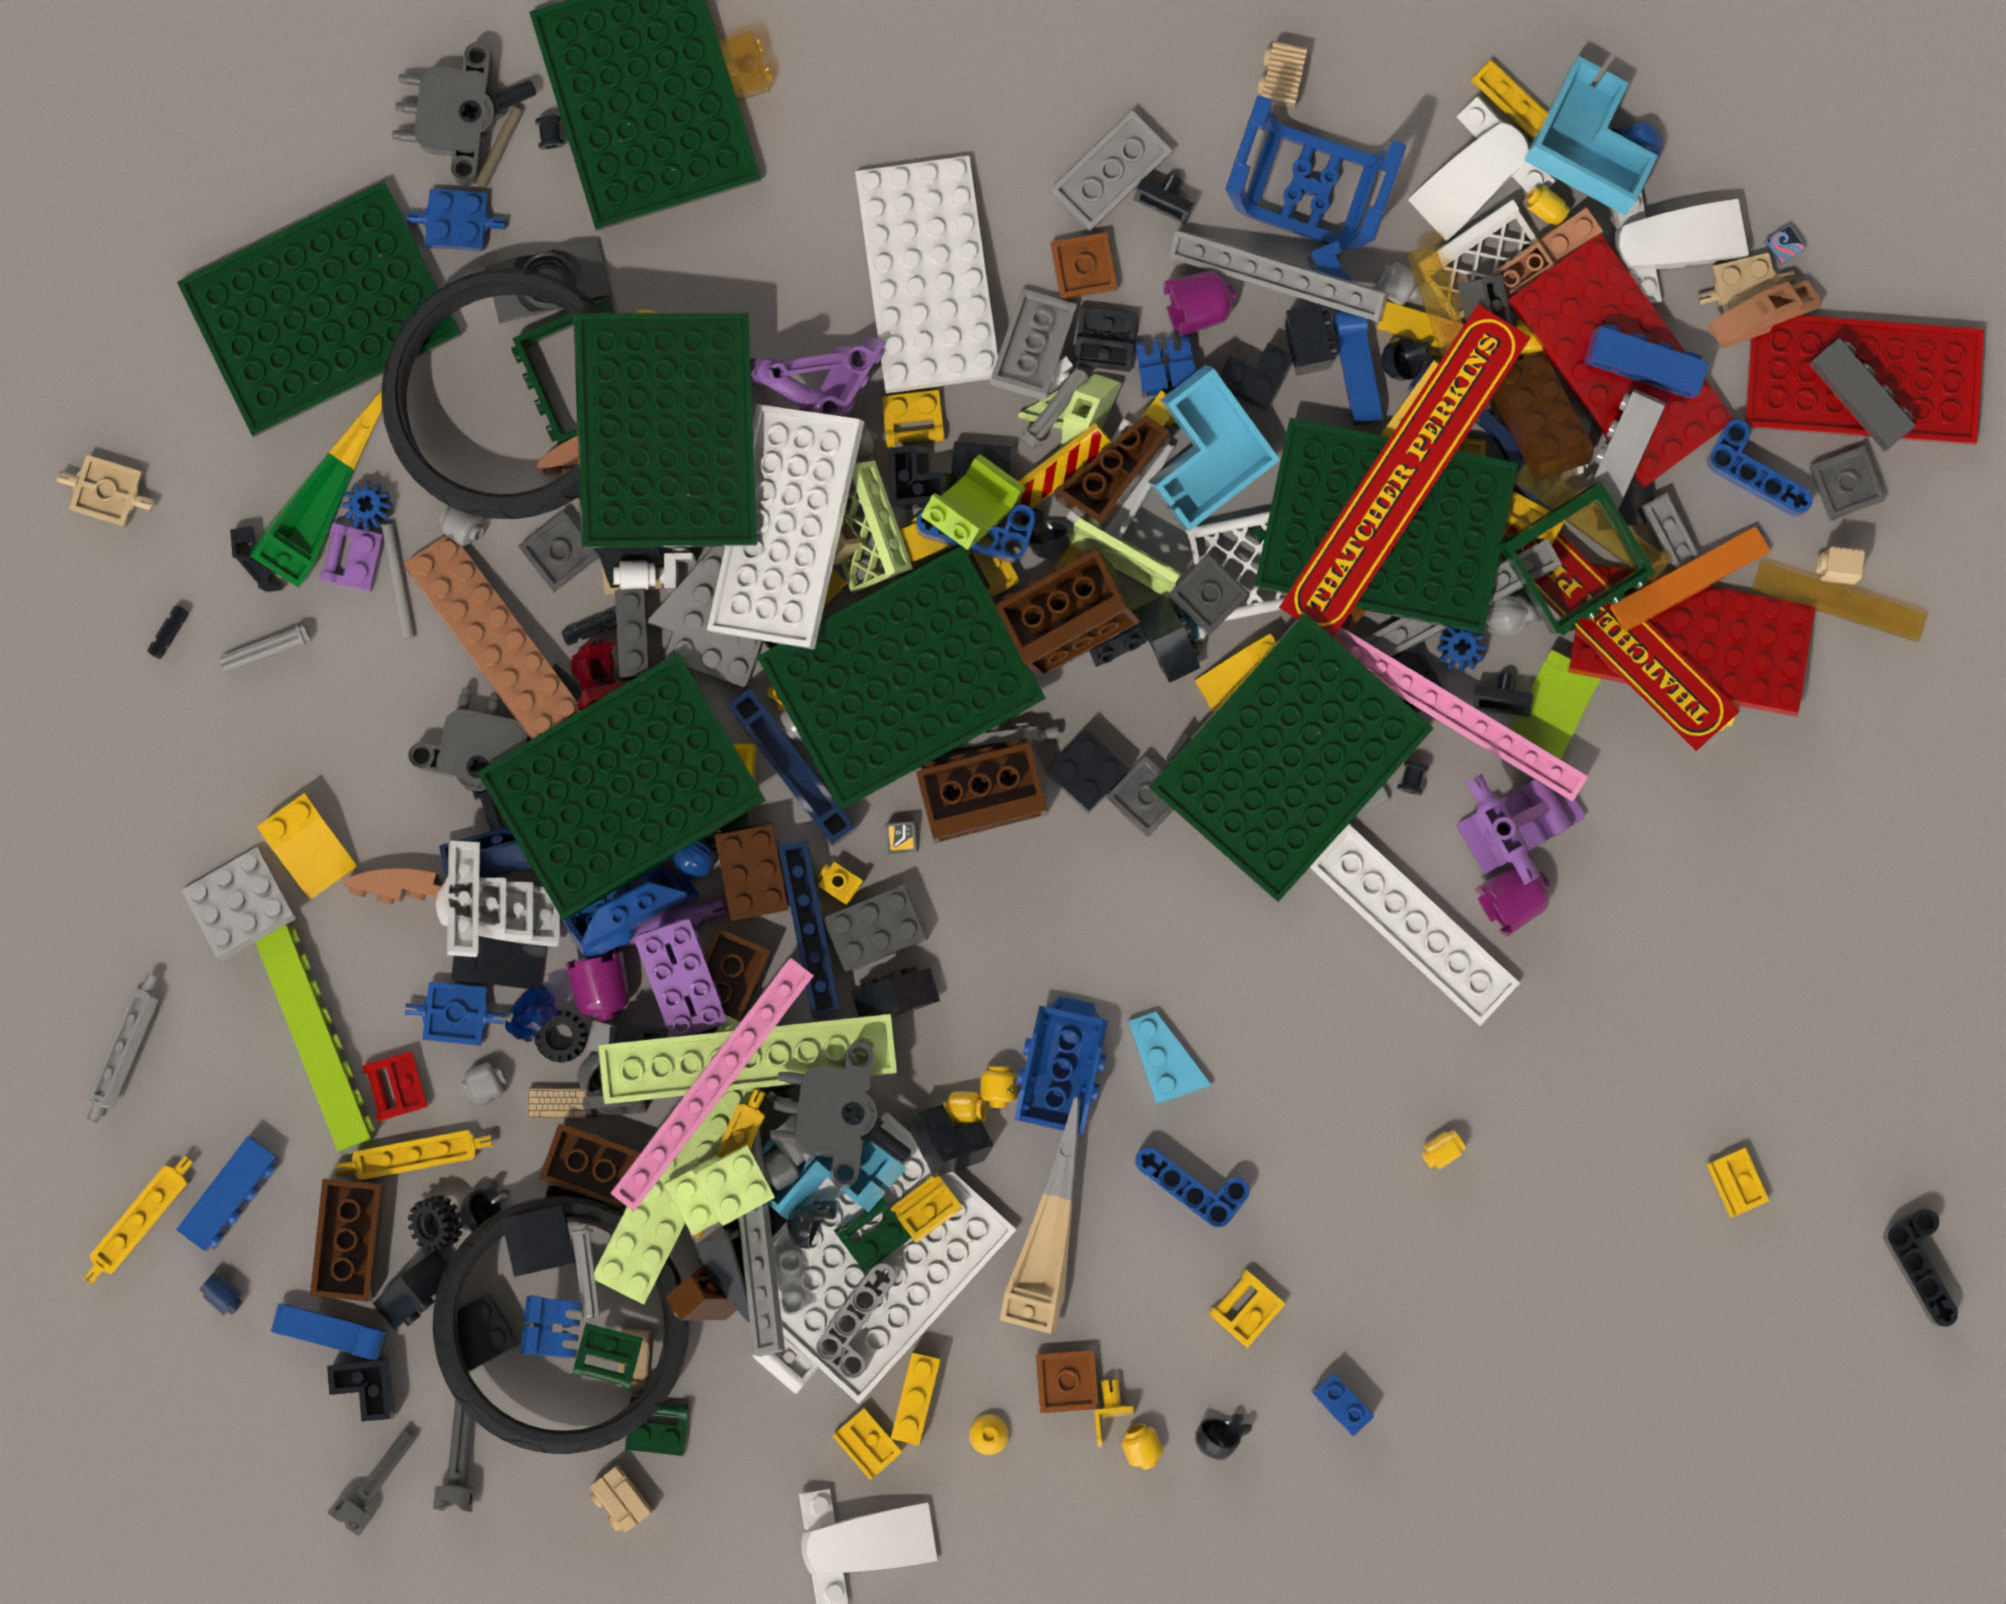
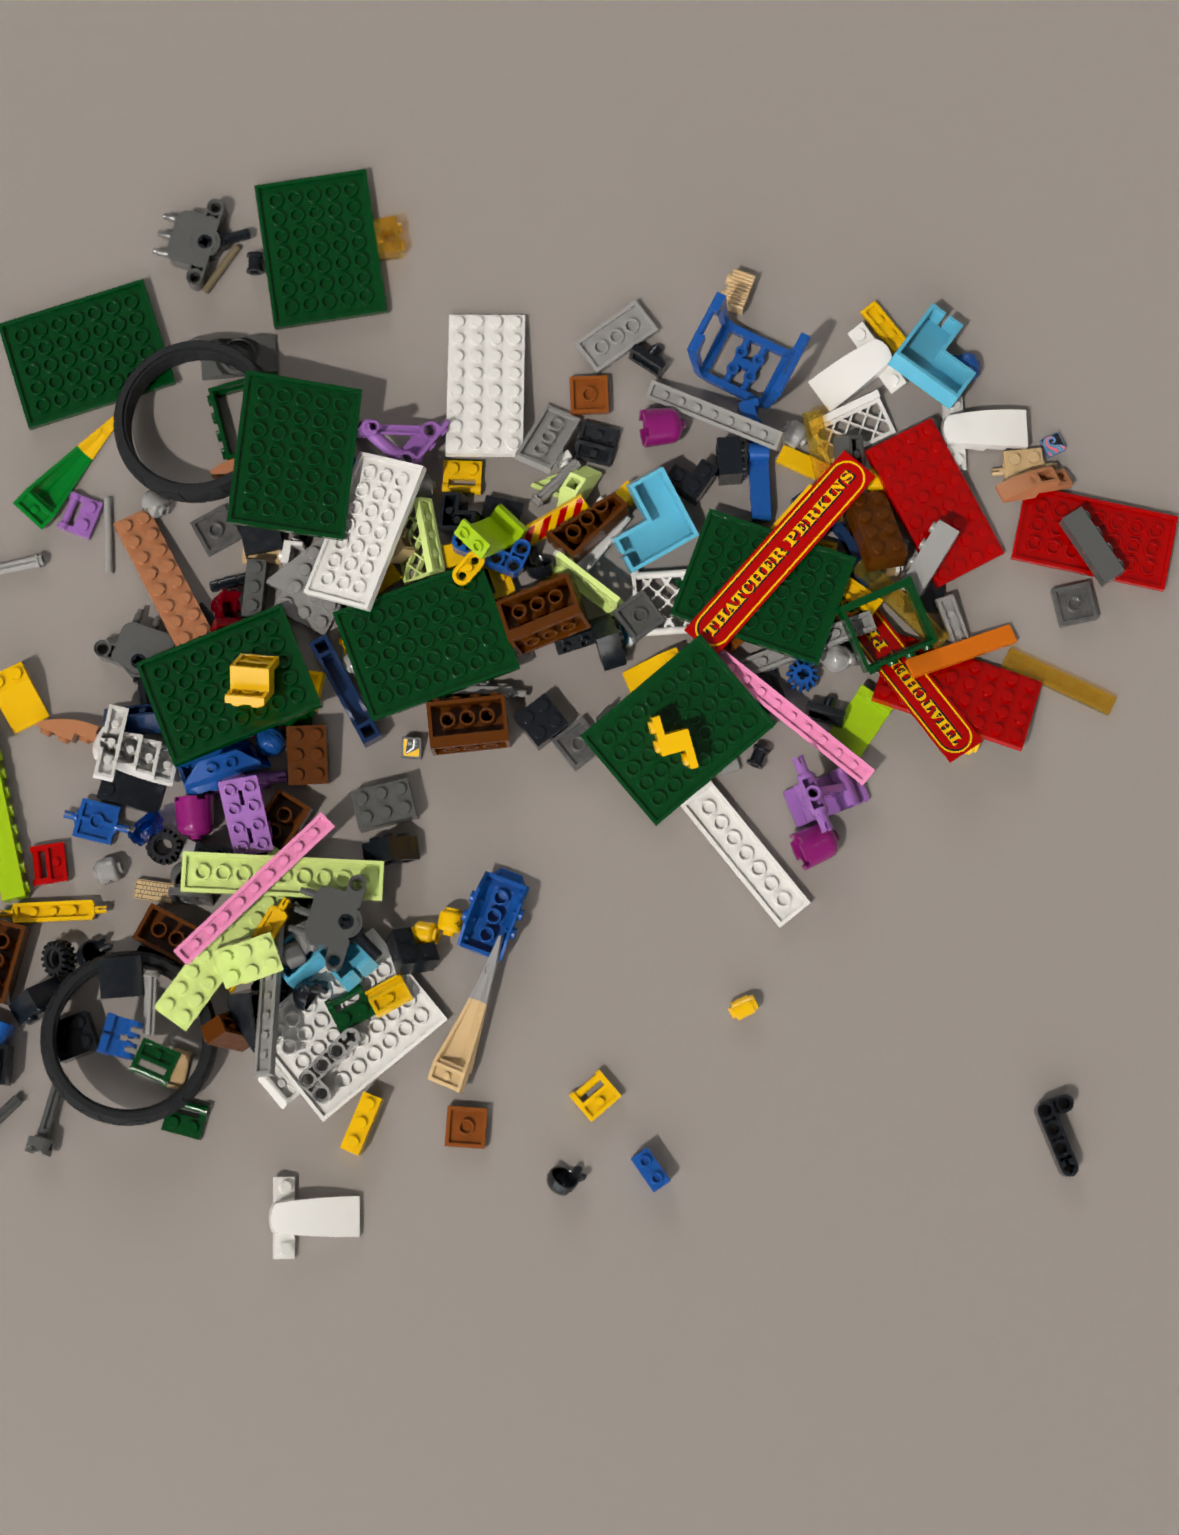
camera: 10 degrees right, 5 degrees down
(260, 574) = (19, 517): black piece -> none
(377, 501) = (98, 476): blue gear -> none
(456, 220) = (185, 310): blue plate -> none
(621, 1500) = (152, 1163): tan brick -> none
(634, 575) = (262, 550): white brick -> none
(658, 777) = (251, 680): none -> yellow bracket
(810, 929) = (340, 799): dark blue brick -> none
(843, 893) = (368, 778): yellow brick -> none
(867, 1444) = (324, 1150): yellow plate -> none
(950, 563) = (468, 568): none -> yellow plate
(989, 1434) = (408, 1155): yellow brick -> none
(1112, 1406) = (493, 1149): yellow bracket -> none
(1142, 1446) = (510, 1178): yellow head -> none
(1155, 375) = (626, 471): blue legs -> none
(1164, 1059) = (565, 921): medium azure wing -> none
(1187, 1182) = (568, 1004): blue beam -> none
(1287, 779) = (673, 742): none -> yellow bracket
(1404, 357) = (791, 482): black piece -> none
(1547, 205) = (899, 397): yellow brick -> none
(1548, 251) = (896, 425): nougat slope -> none
(1646, 362) = (951, 504): blue brick -> none
(1737, 1182) = (939, 1058): yellow plate -> none
(1761, 473) = (1018, 589): blue beam -> none
(1840, 565) = (1062, 656): tan brick -> none

